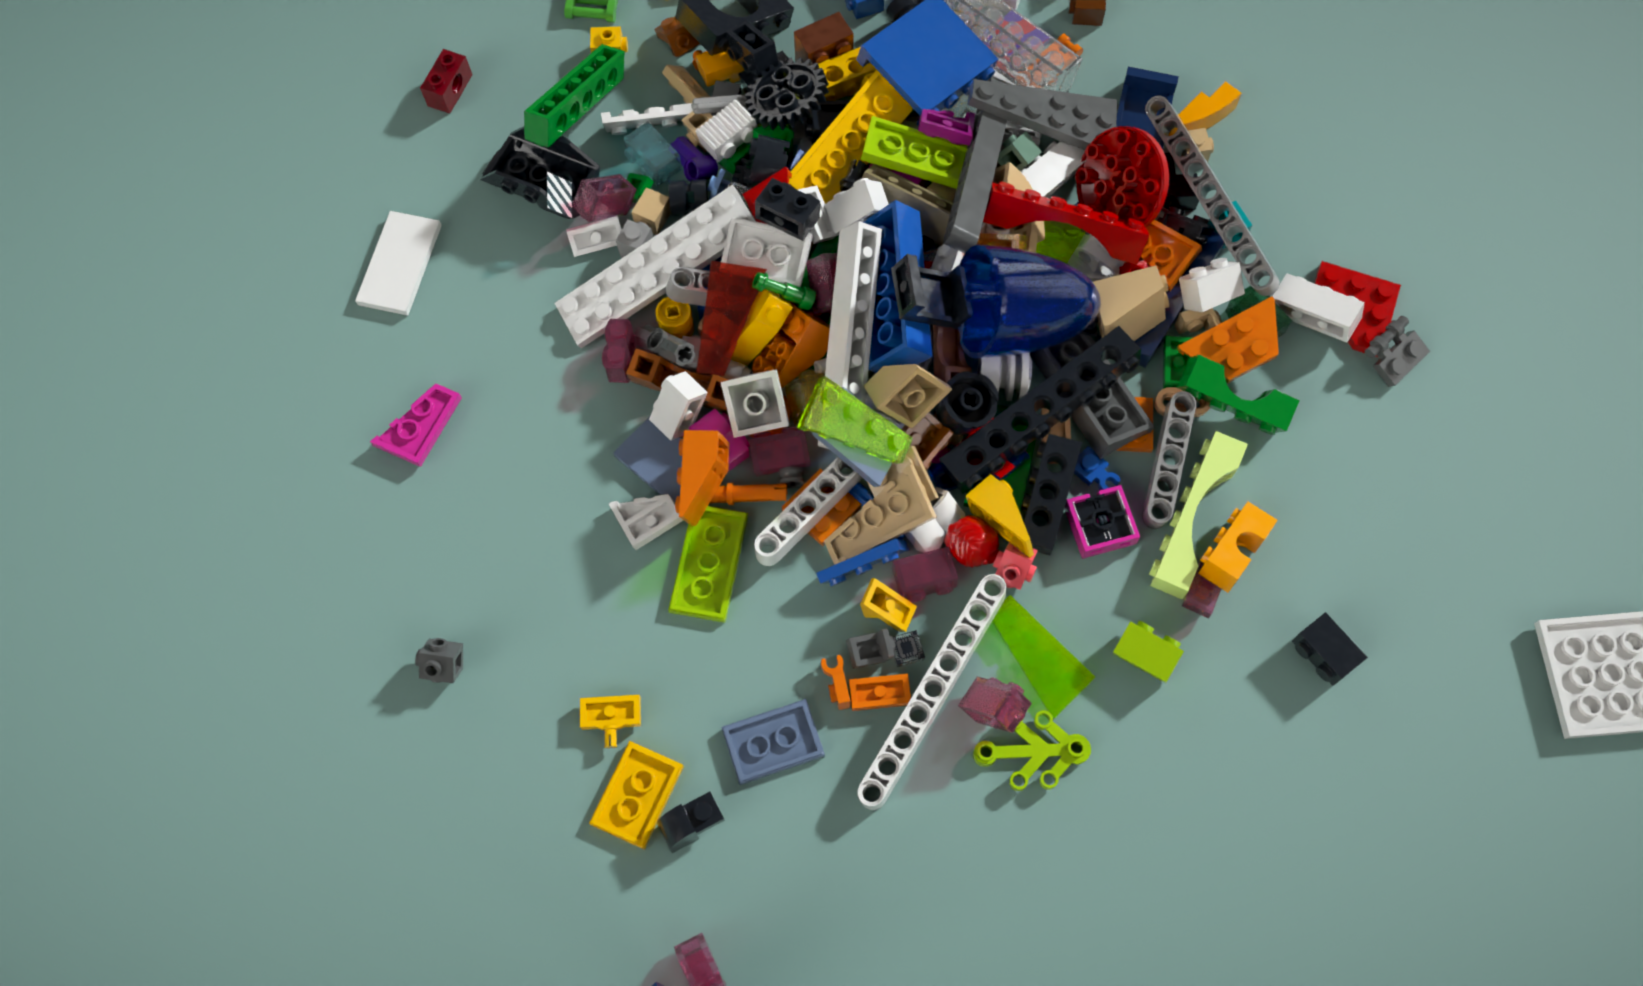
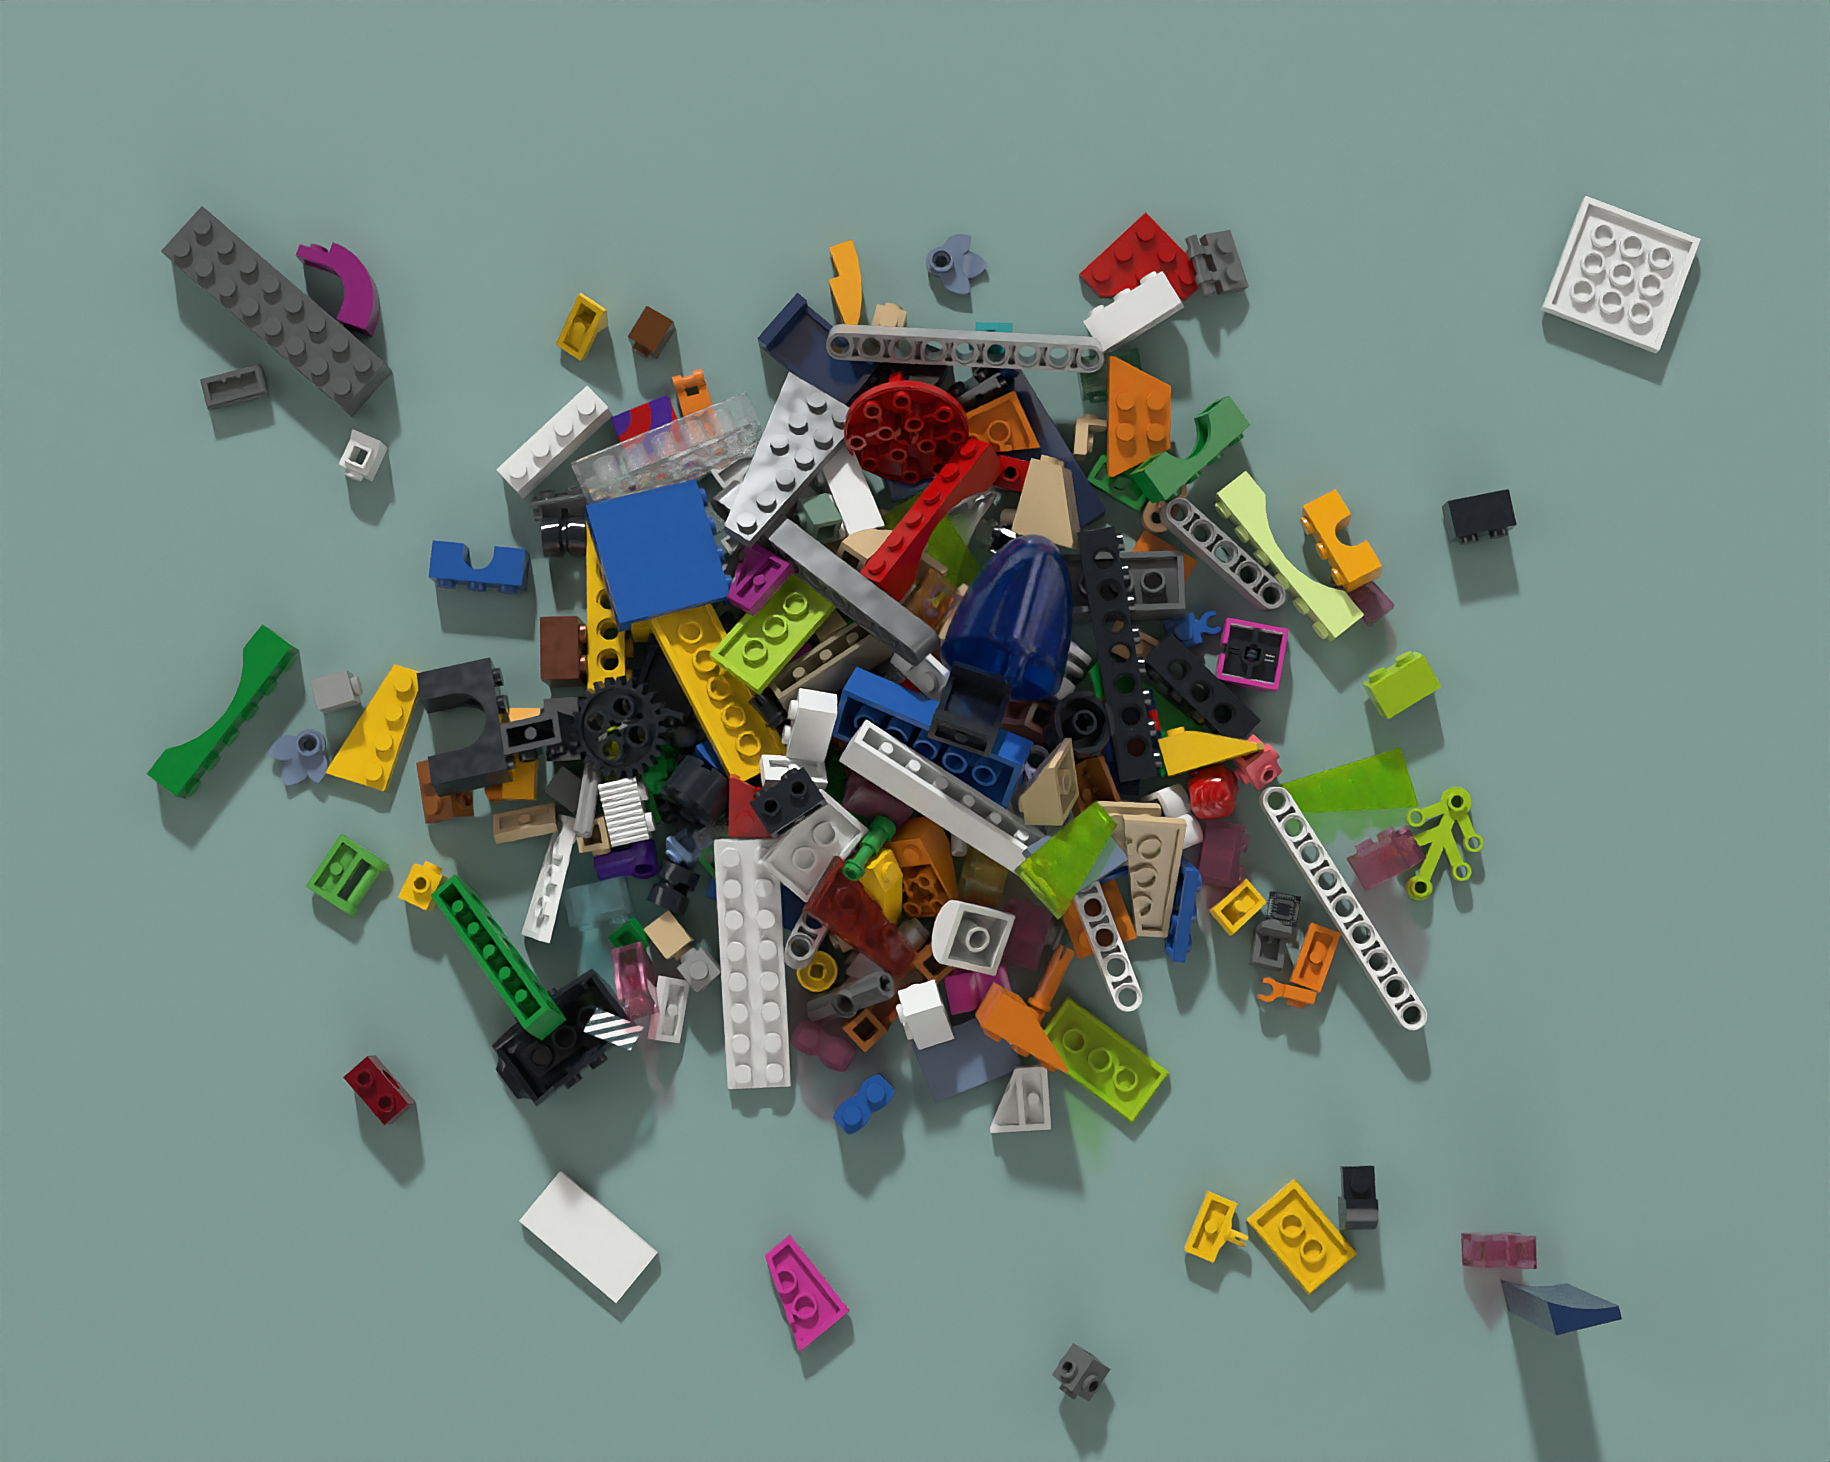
camera: 65 degrees left, 15 degrees up
(587, 399) = (857, 1109): none -> blue brick
(773, 742) = (1311, 1082): sand blue tile -> none
(1211, 285) = (1066, 408): white brick -> none
(1270, 179) = (960, 264): none -> sand blue plate

